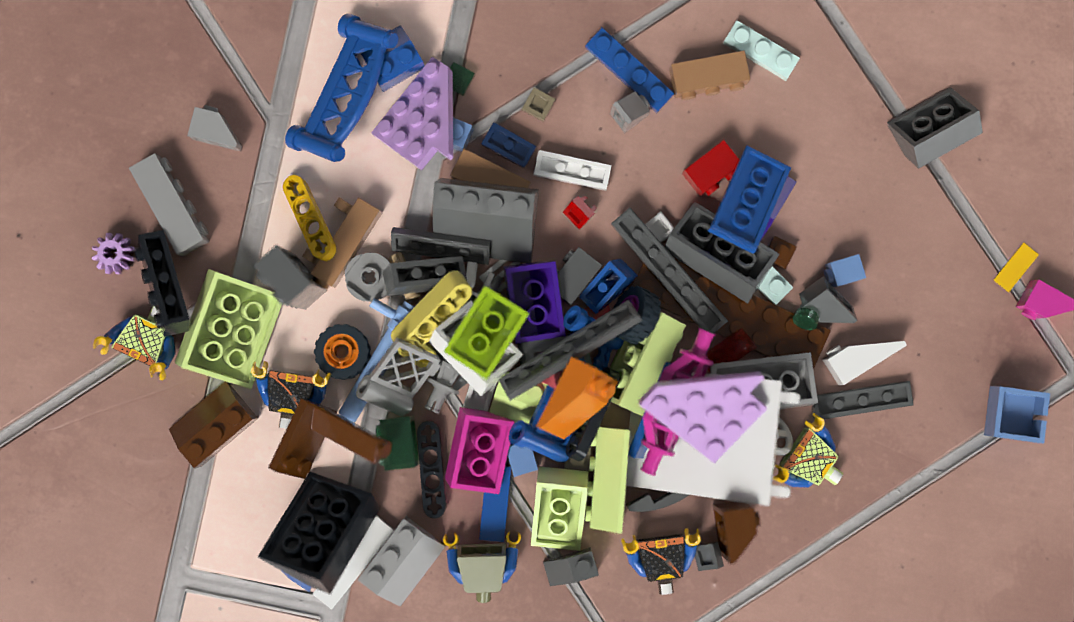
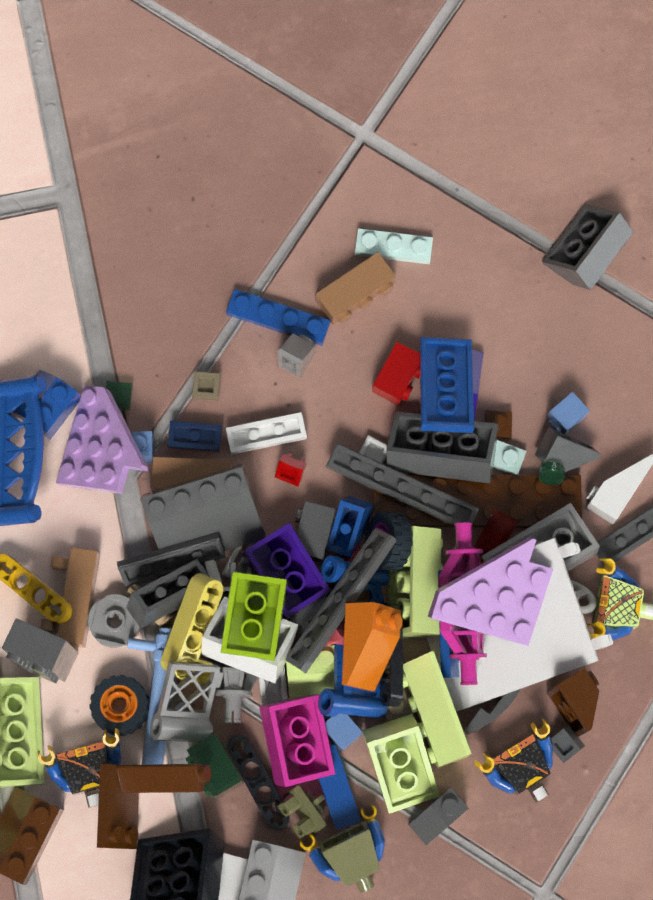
camera: 25 degrees left, 10 degrees down
(462, 509) = (307, 809): none -> olive hips

